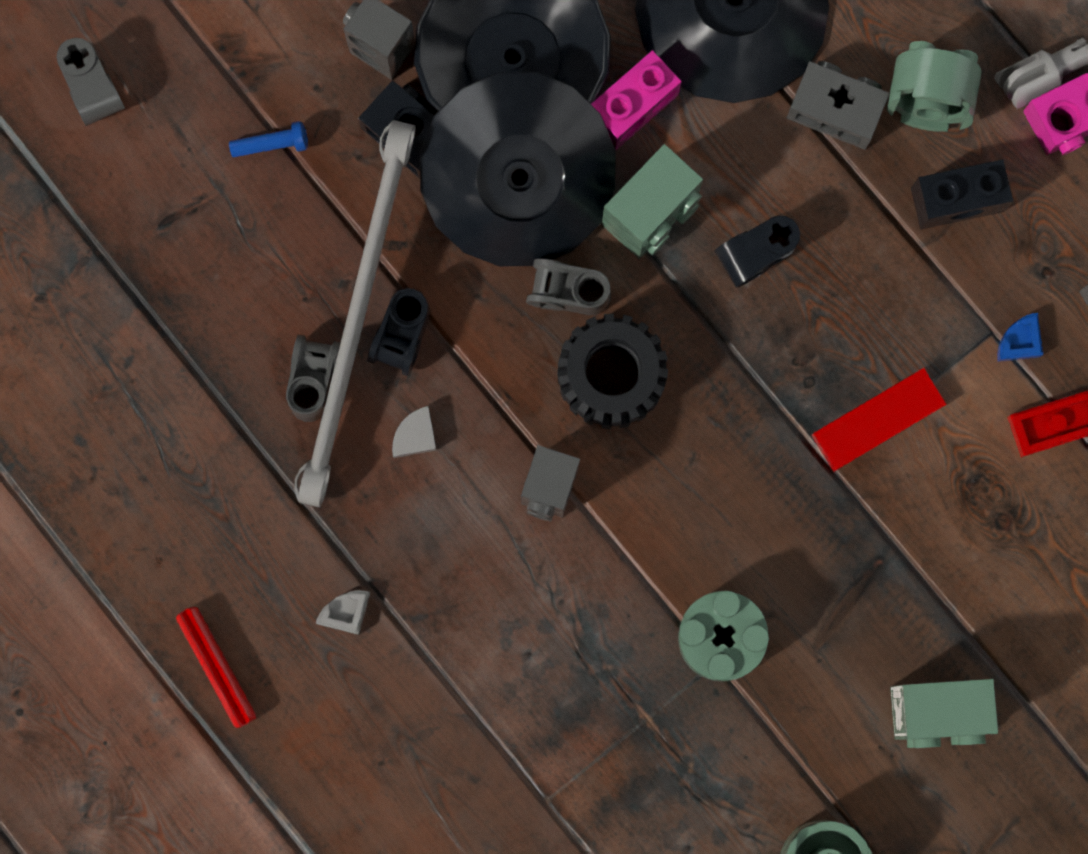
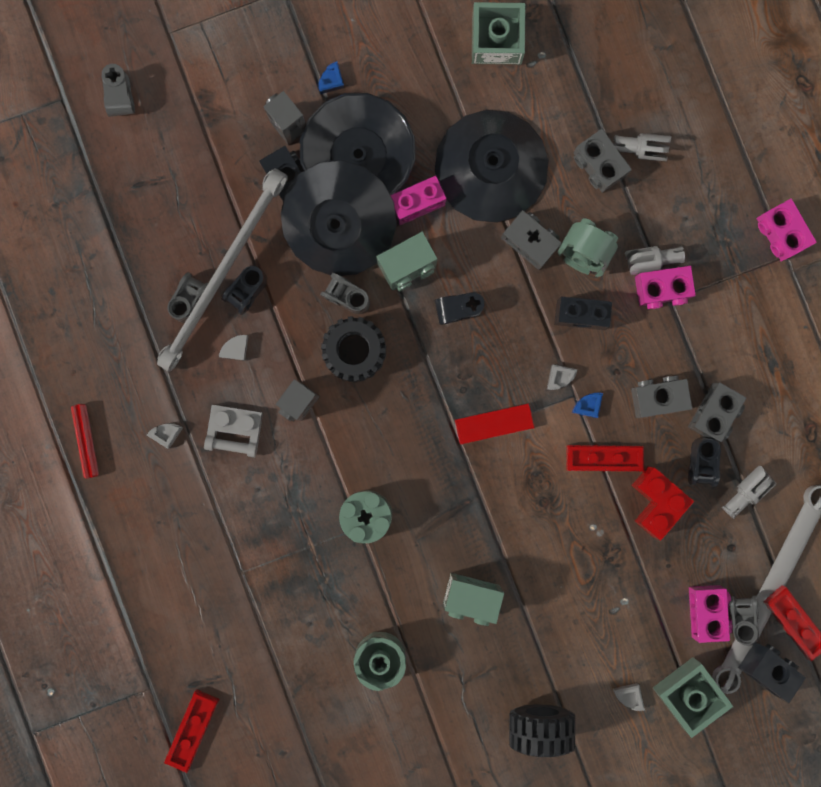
camera: 20 degrees right, 5 degrees up
(266, 142) = (223, 160): blue piece -> none
(454, 555) = (235, 422): none -> light grey plate
(959, 309) = (560, 377): none -> light grey tile

